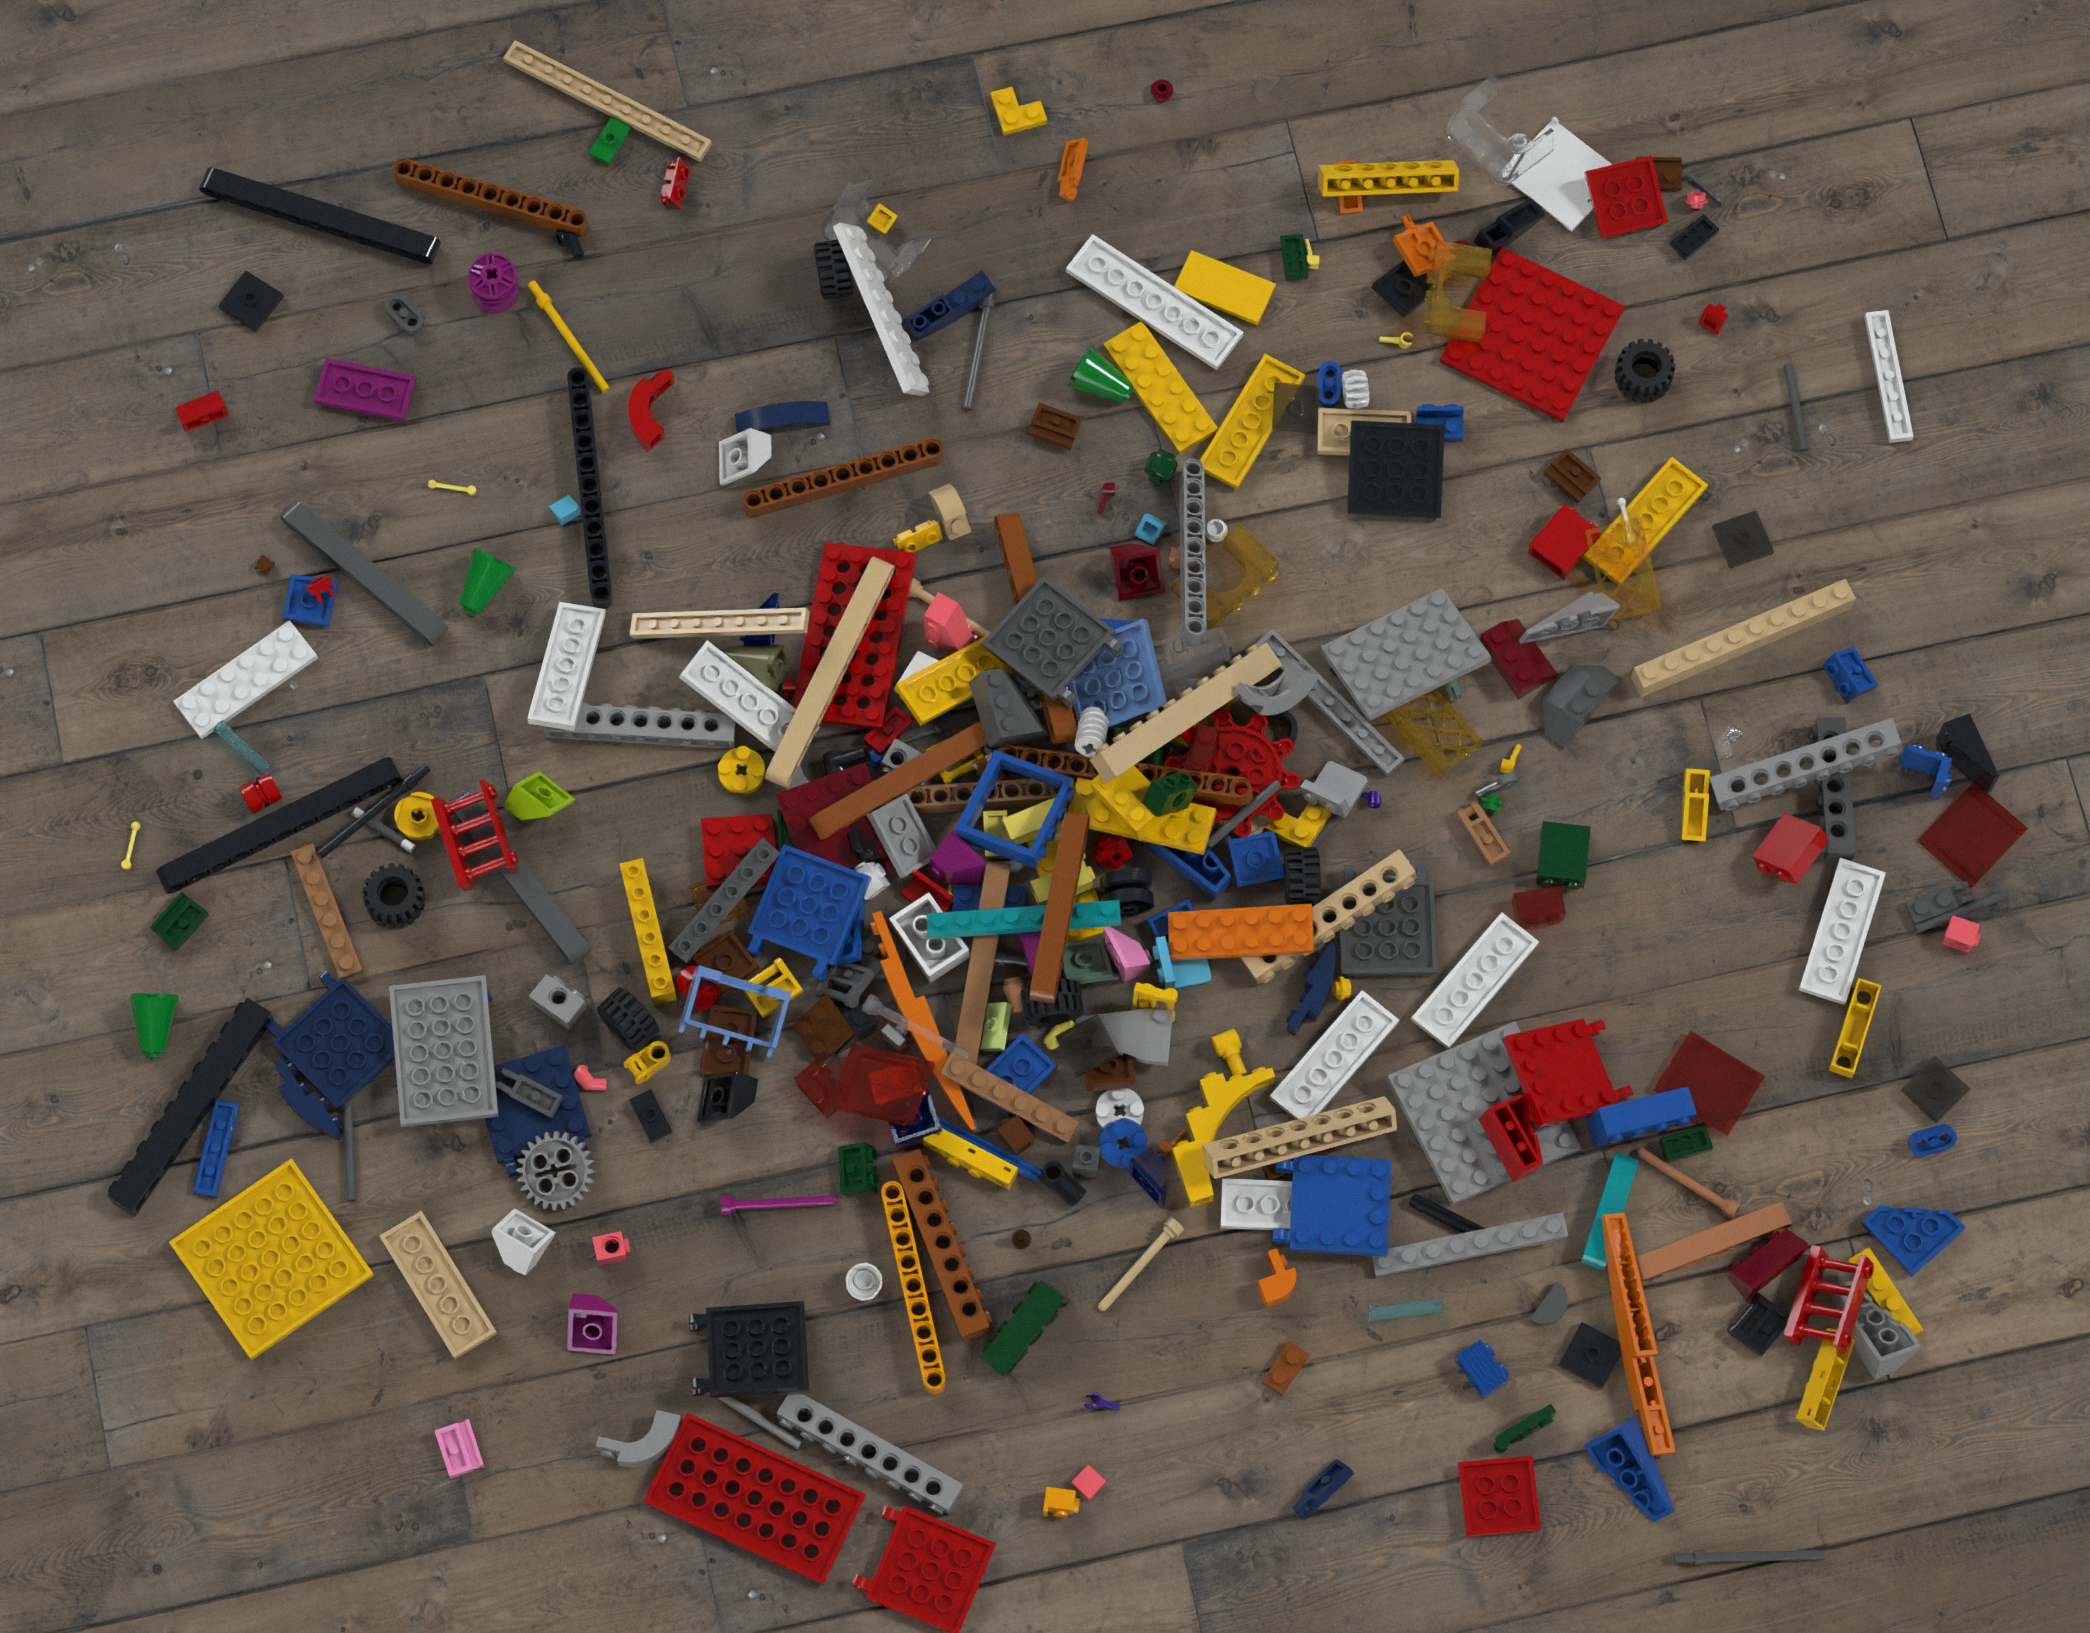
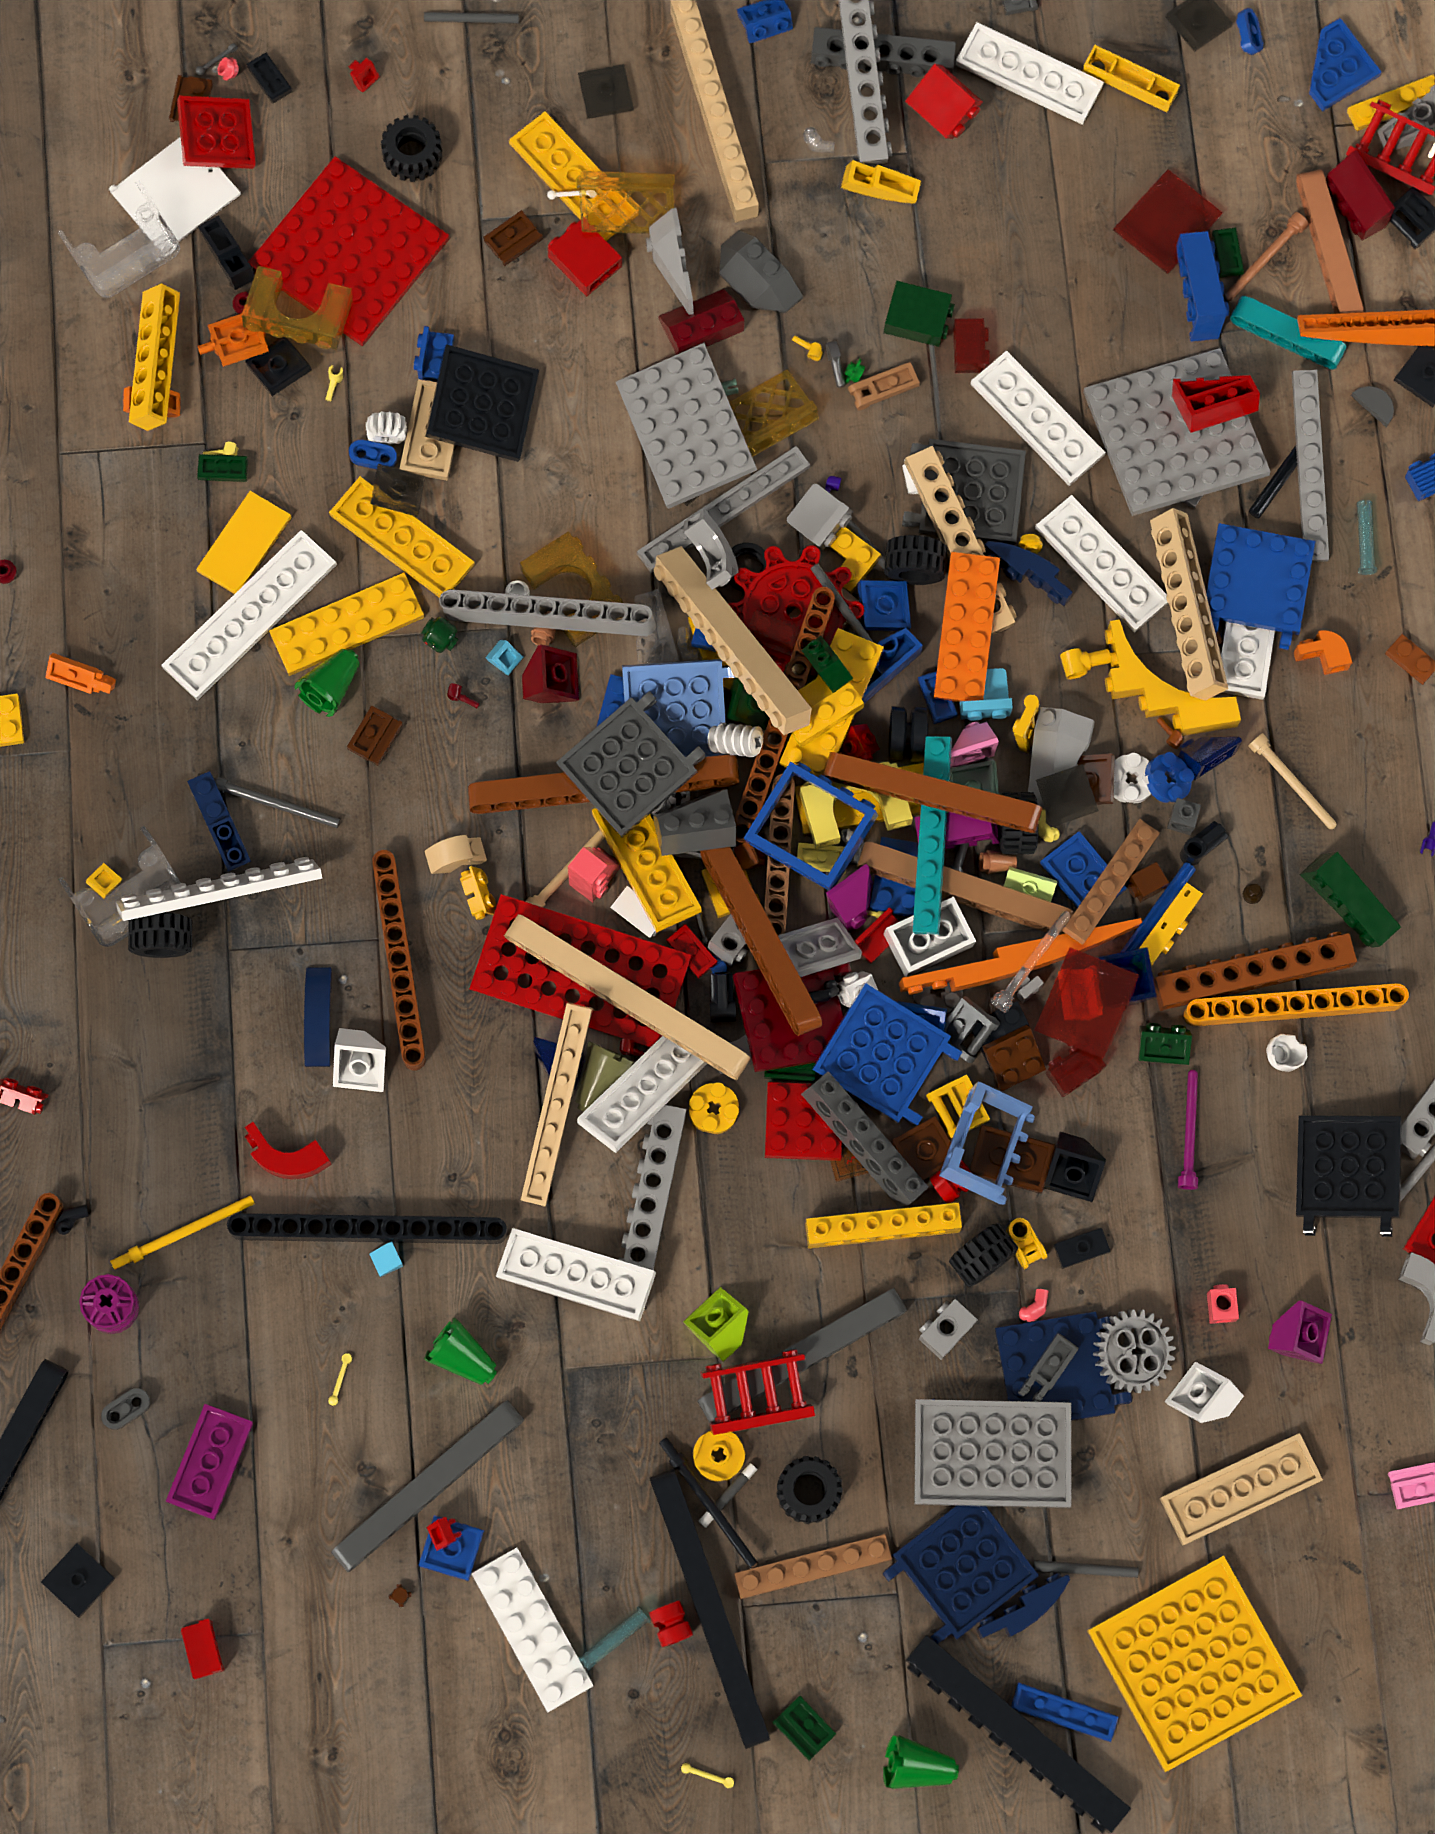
camera: 85 degrees left, 5 degrees up
(1562, 1071) = (1150, 346): red plate -> none

